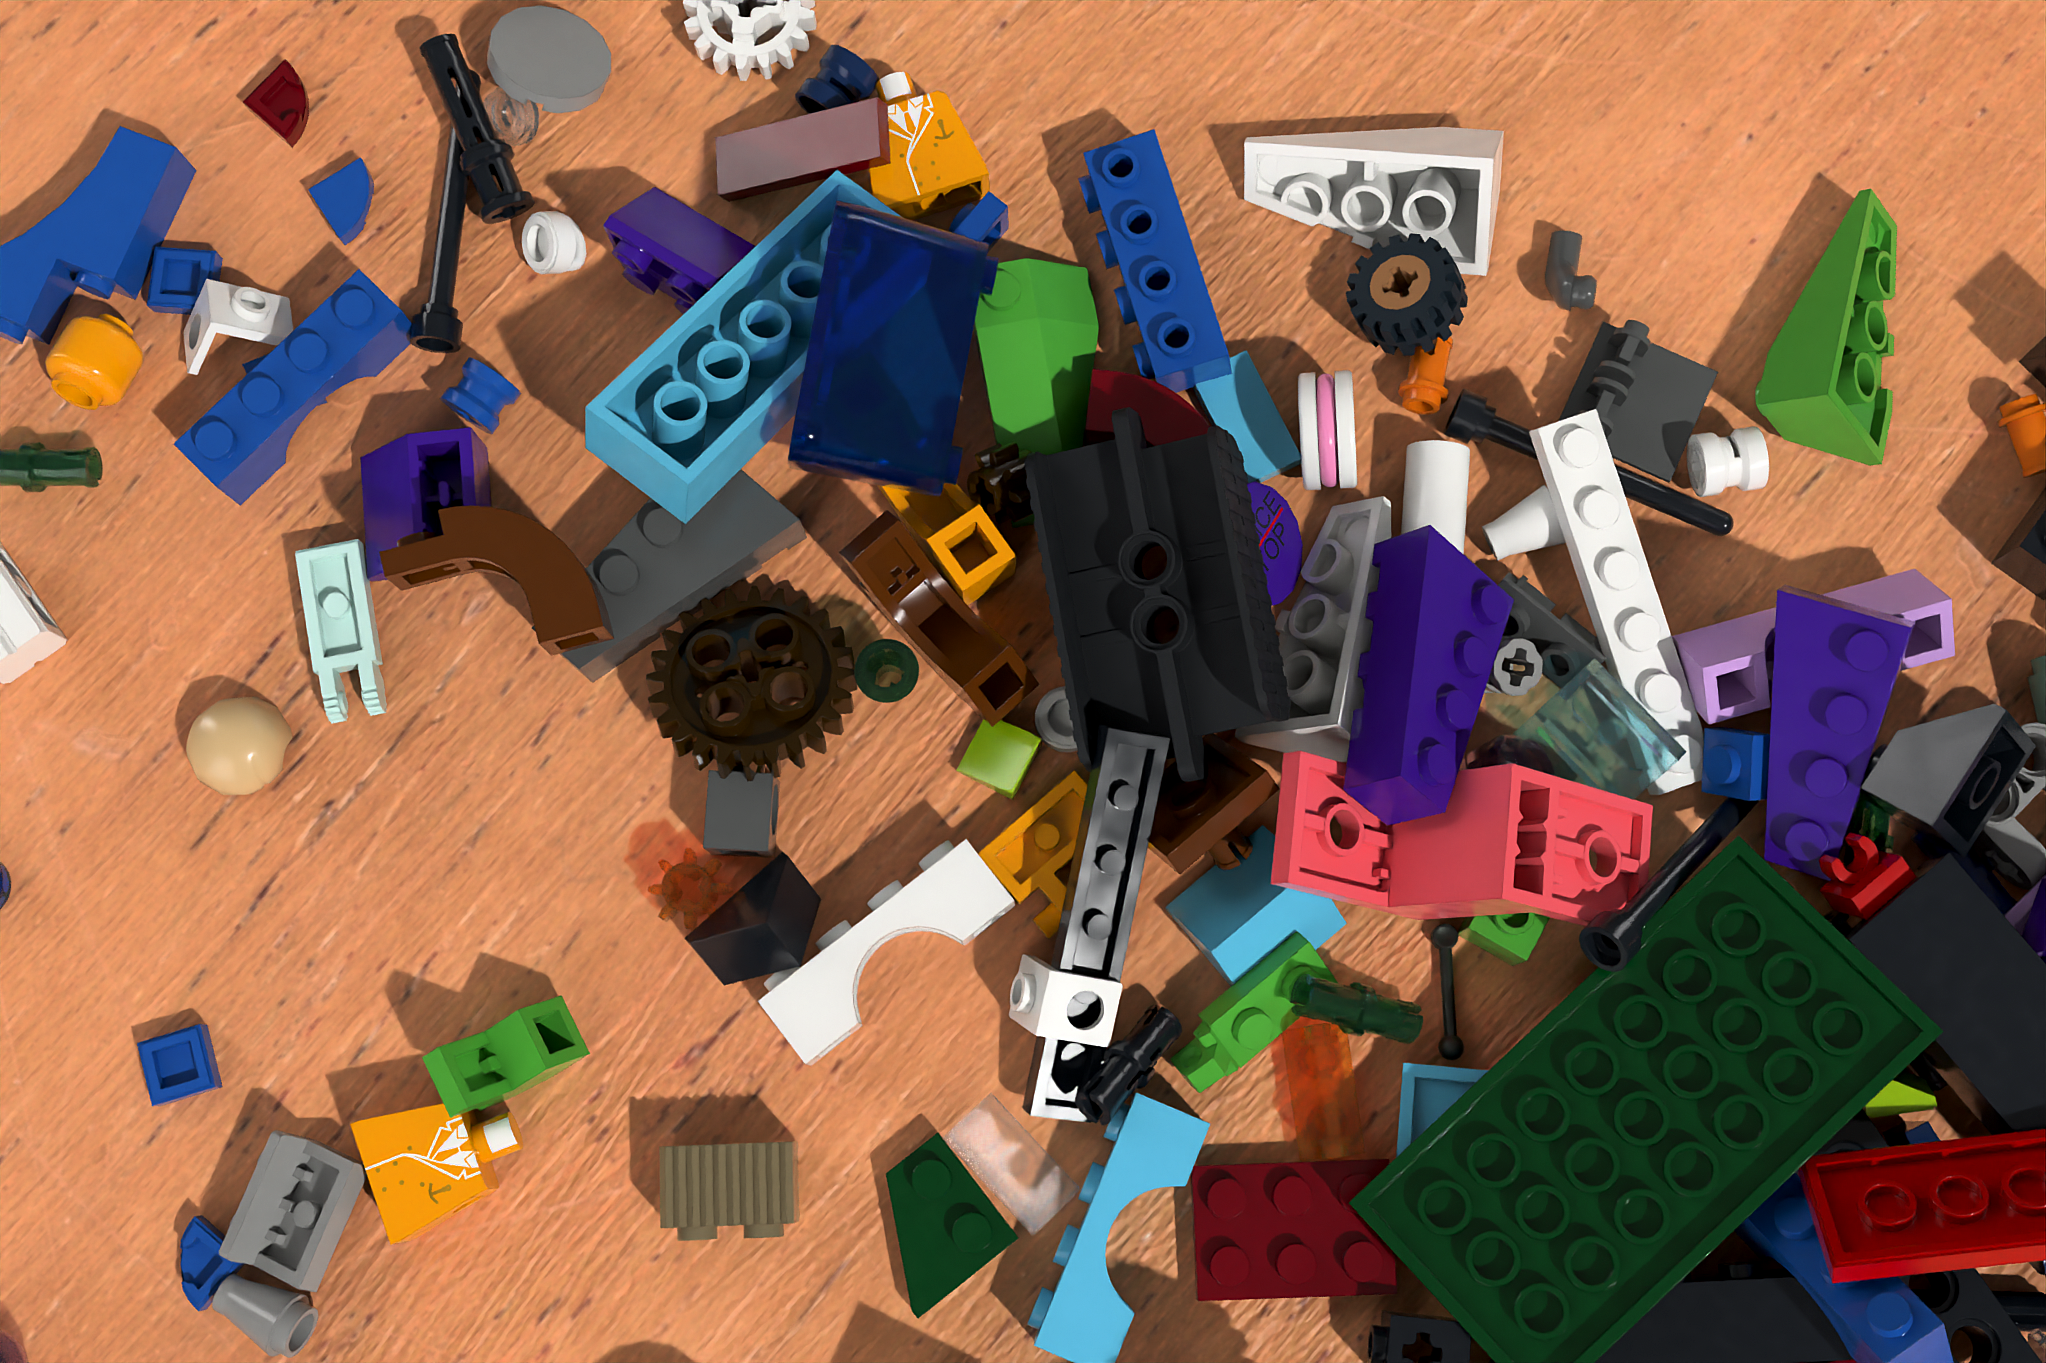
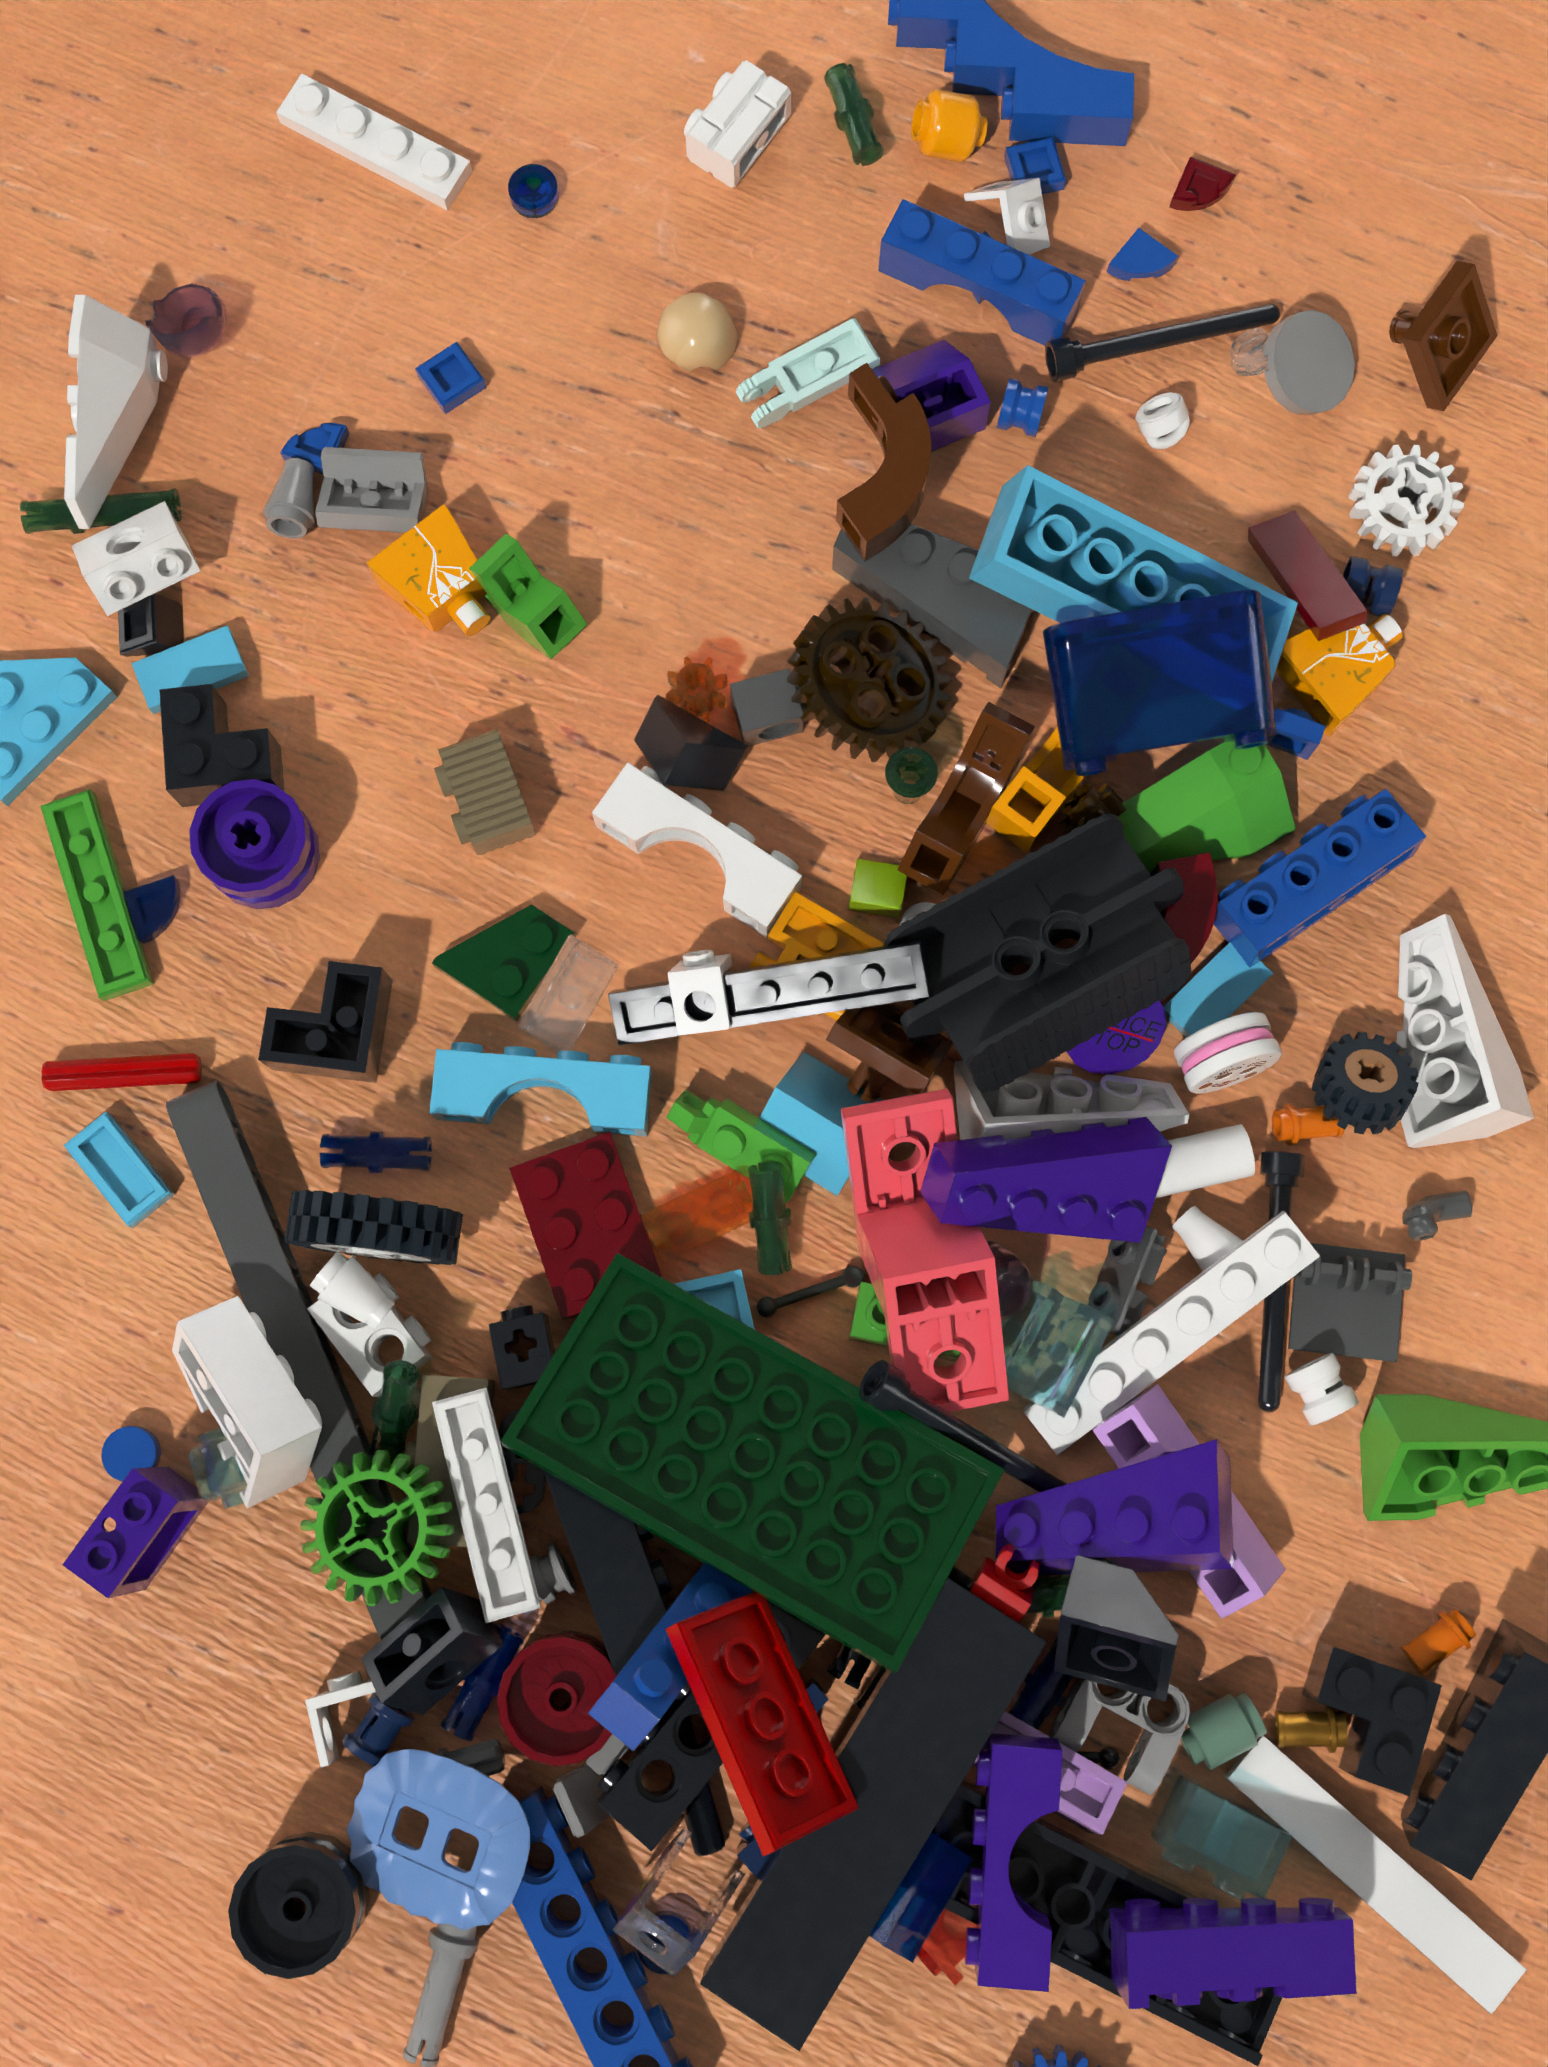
camera: 70 degrees right, 0 degrees up
(482, 159) = (1207, 339): black pin -> none
(672, 247) = (1191, 498): dark purple slope -> none
(1128, 1065) = (670, 1055): black pin -> none
(1504, 678) = (1075, 1263): light grey bush -> none
(1735, 763) = (1067, 1459): blue plate -> none
(1902, 1095) = (842, 1665): lime slope -> none

